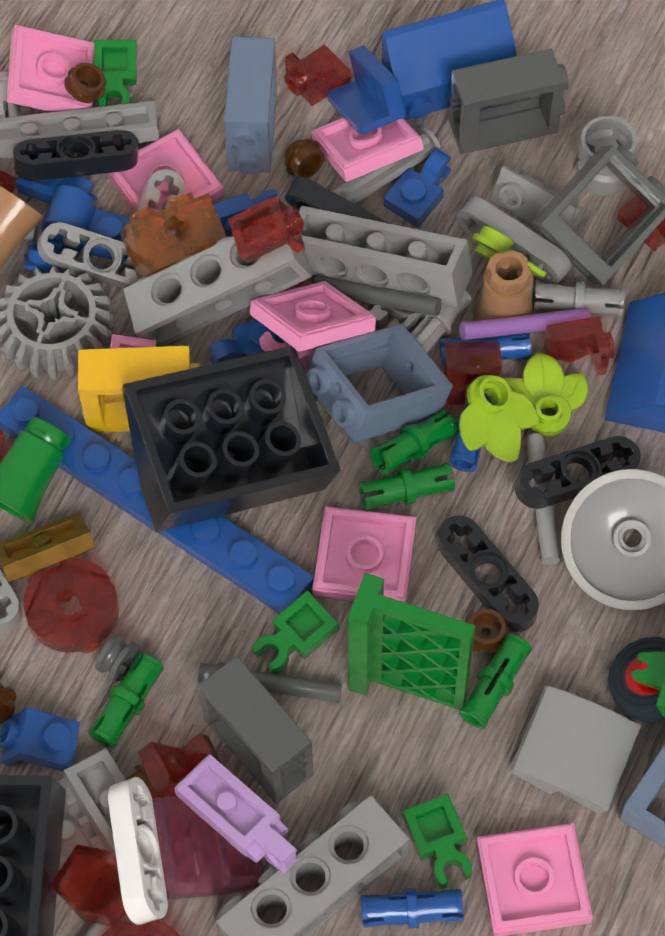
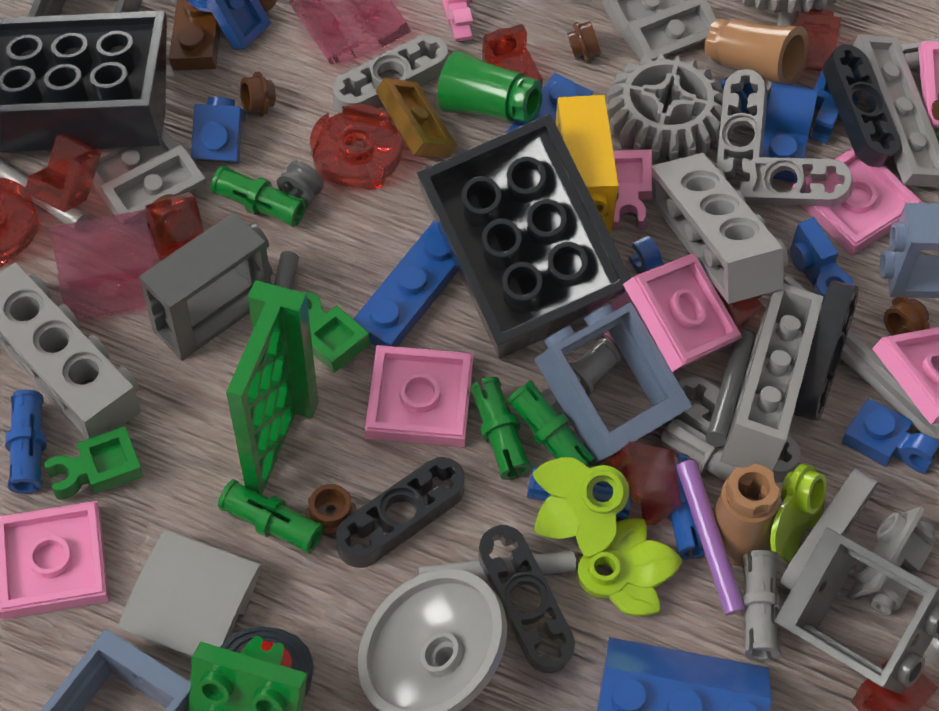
camera: 85 degrees right, 5 degrees down
(137, 851) = (51, 190): white beam -> none
(153, 250) = (758, 161): clear orange brick -> none
(237, 813) = (114, 270): lavender hinge -> none
(266, 229) = (760, 234): clear red bracket -> none
(578, 338) = (700, 603): clear red bracket -> none

